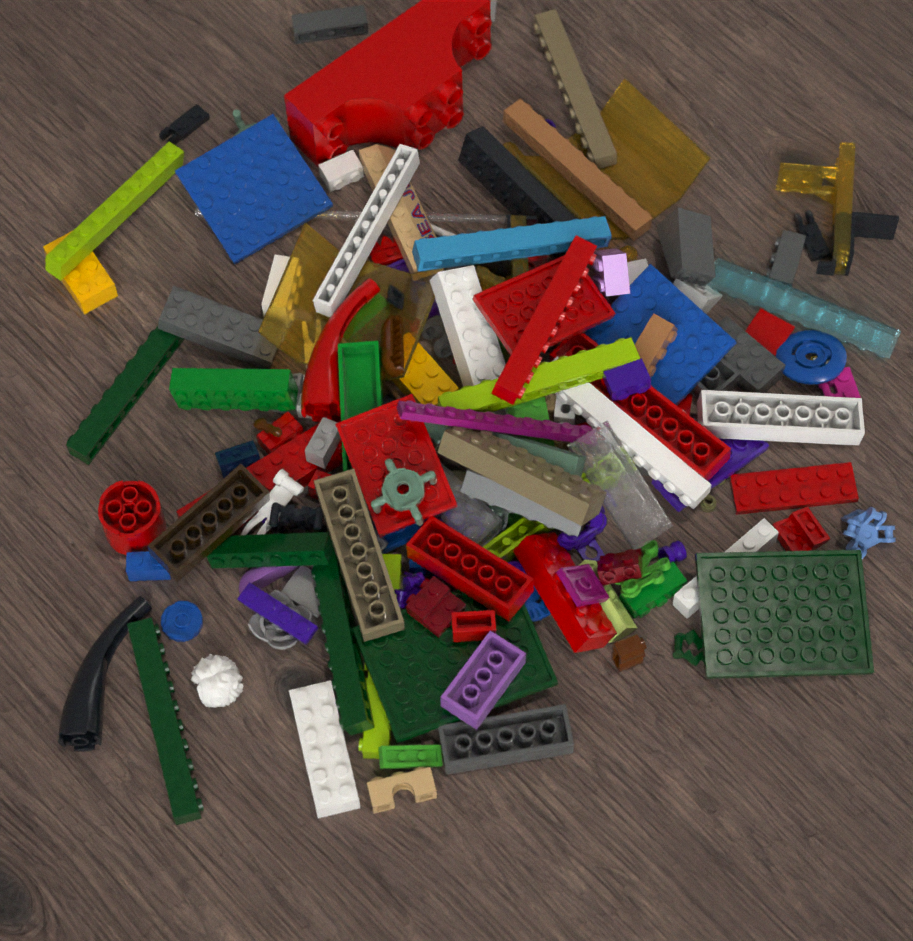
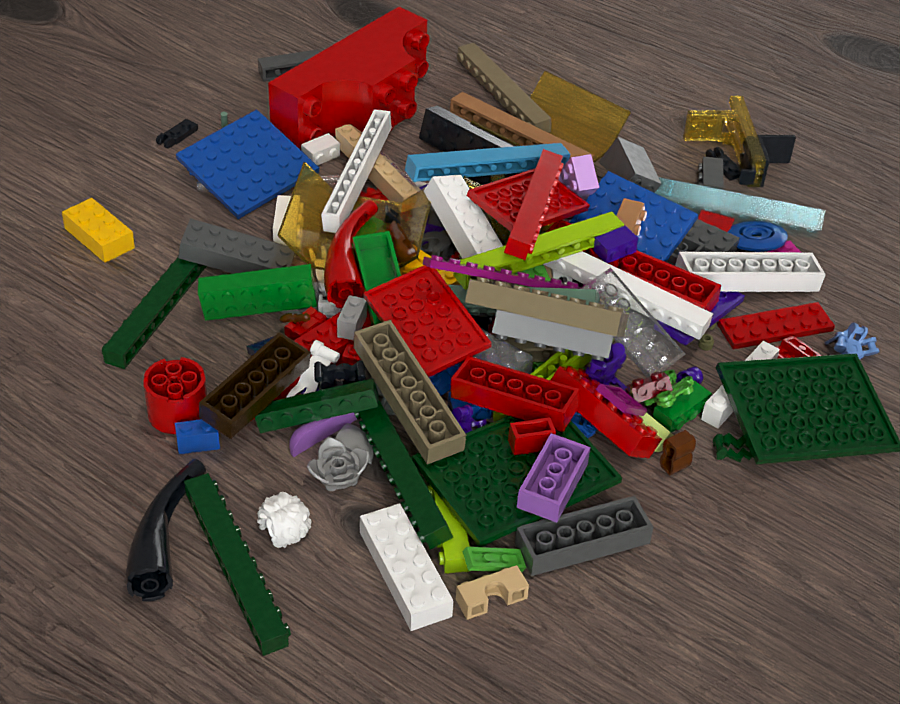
camera: 15 degrees left, 20 degrees down
(114, 211) = (123, 182): lime brick -> none
(182, 621) = (237, 479): blue tile -> none
(277, 613) = (335, 455): dark purple plate -> none
(406, 501) = (441, 339): sand green plate -> none
(434, 606) = (487, 428): dark red plate -> none

